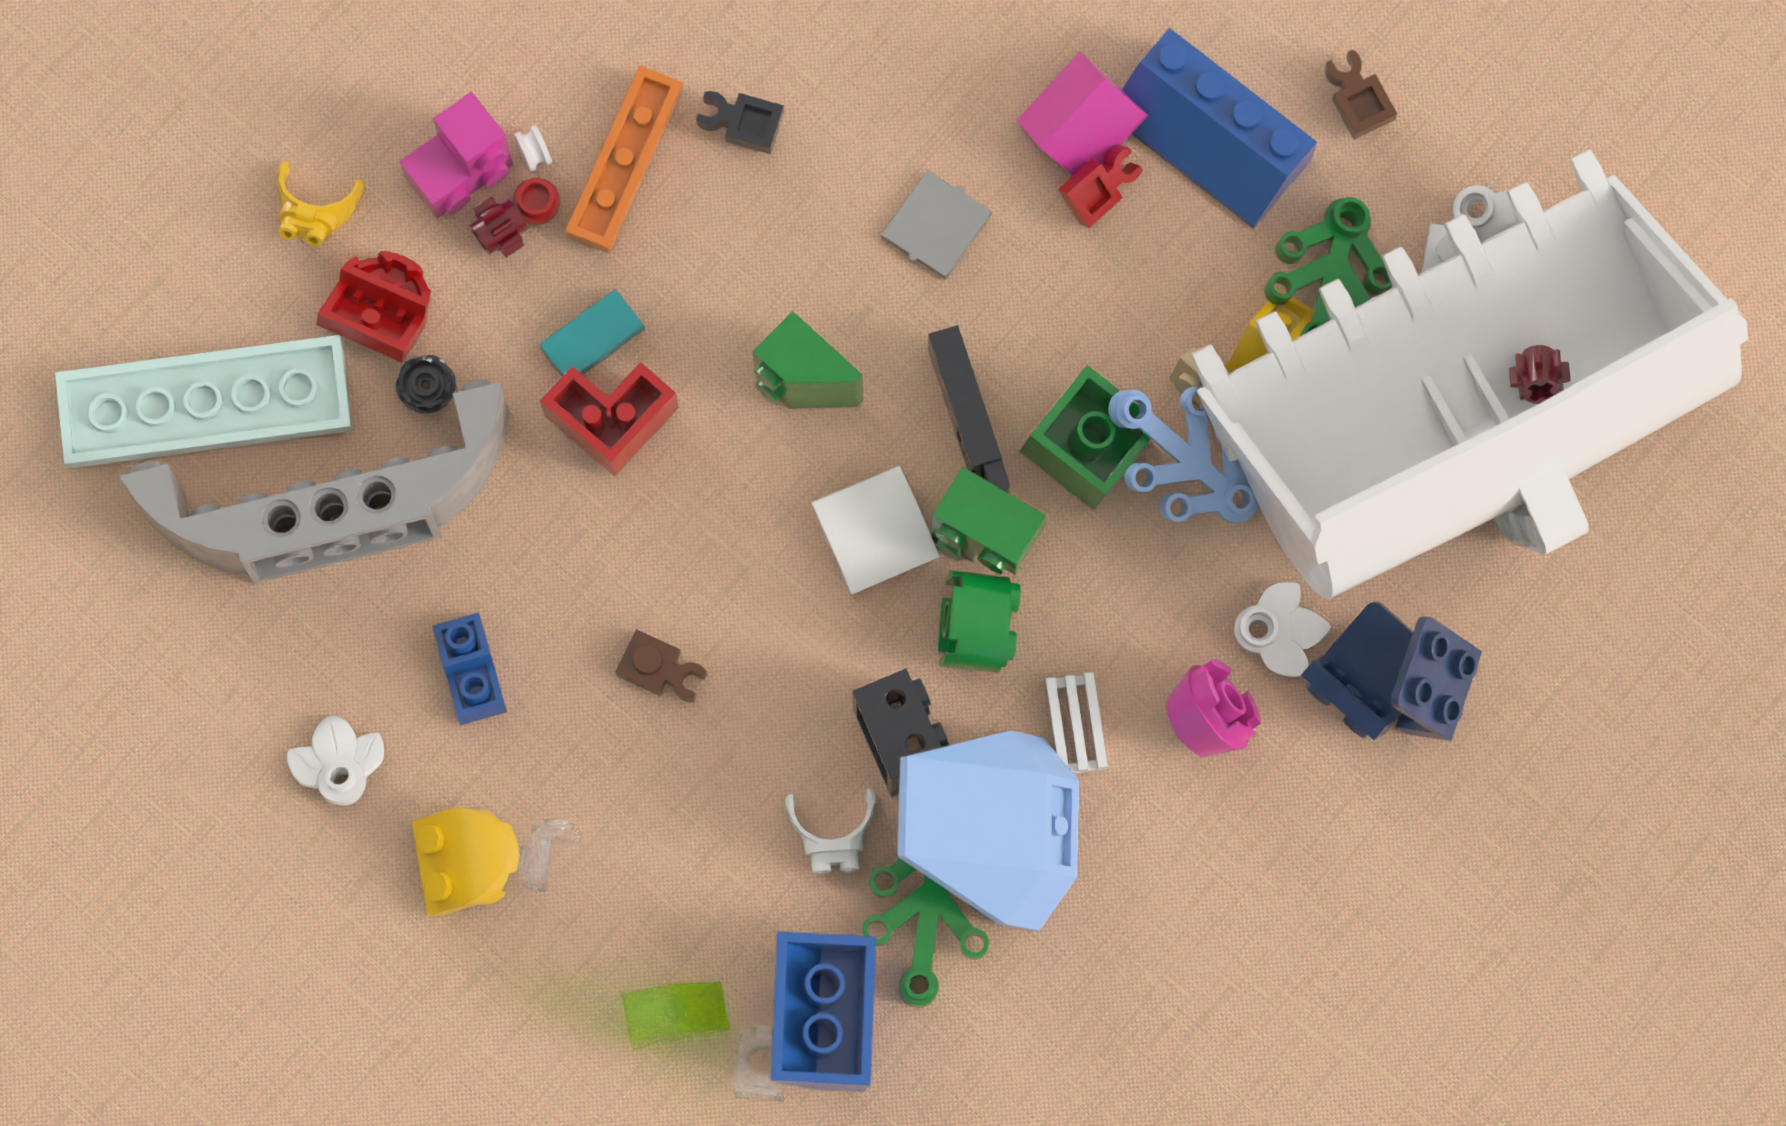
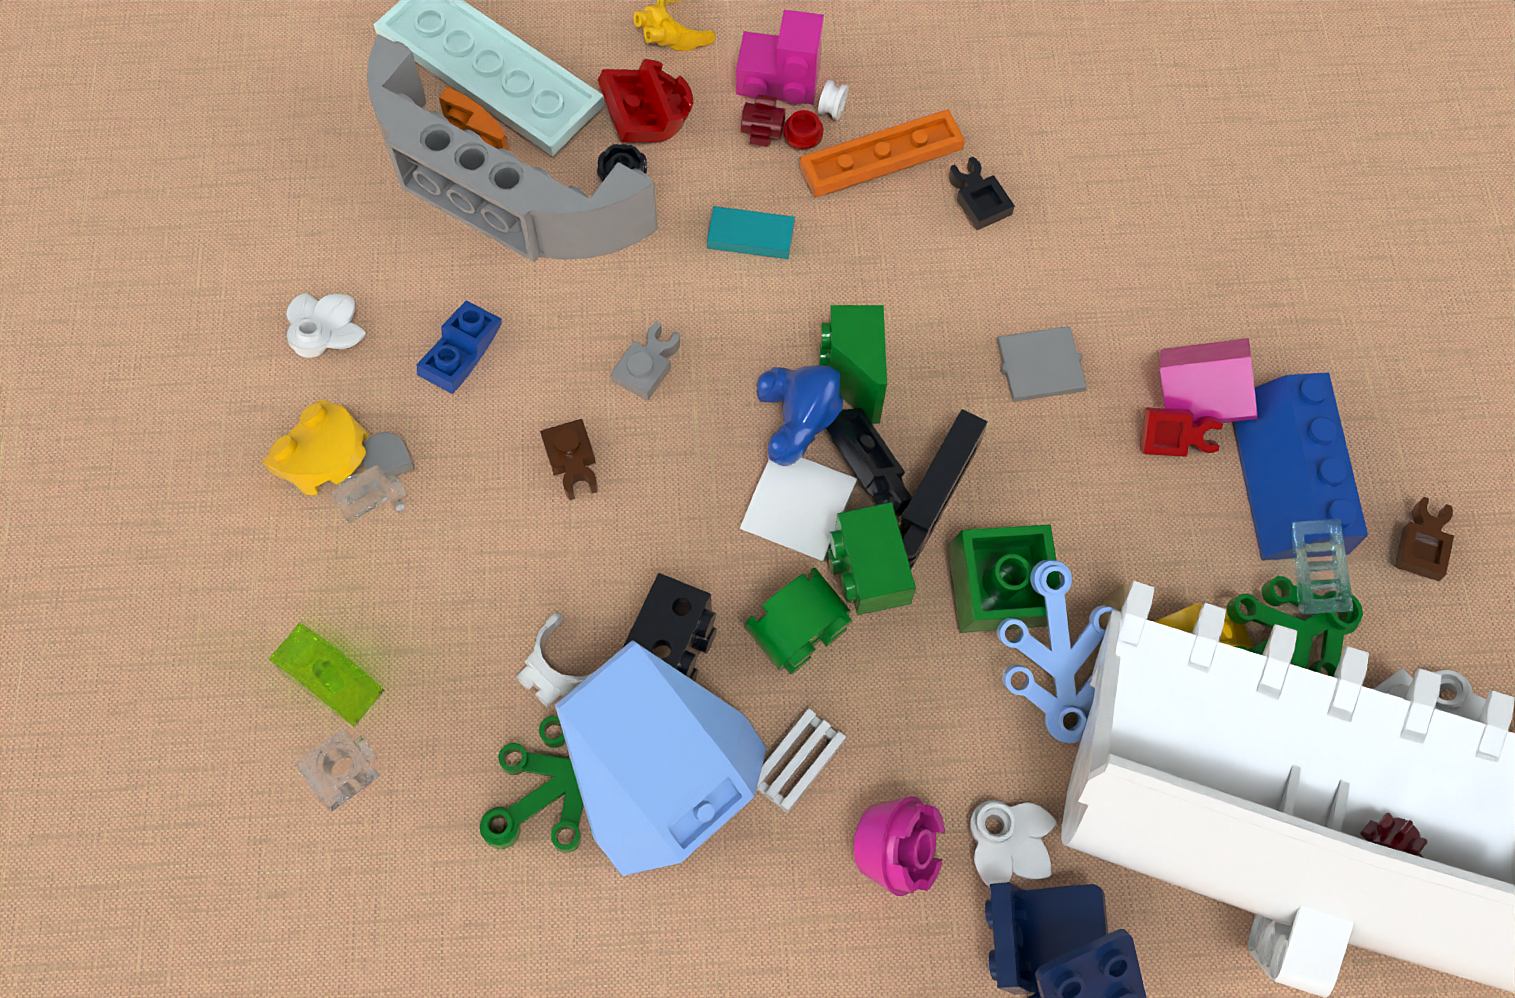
camera: 45 degrees right, 10 degrees down
(279, 468) = (469, 115): none -> orange slope
(519, 809) = (388, 453): none -> light grey tile
(611, 425) = (709, 285): red brick -> none
(633, 536) = (646, 366): none -> light grey plate
(808, 446) = (809, 406): none -> blue head
(823, 1011) = (409, 771): blue slope -> none
(891, 440) = (870, 458): none -> black hinge
(1327, 242) = (1341, 580): none -> clear light blue slope

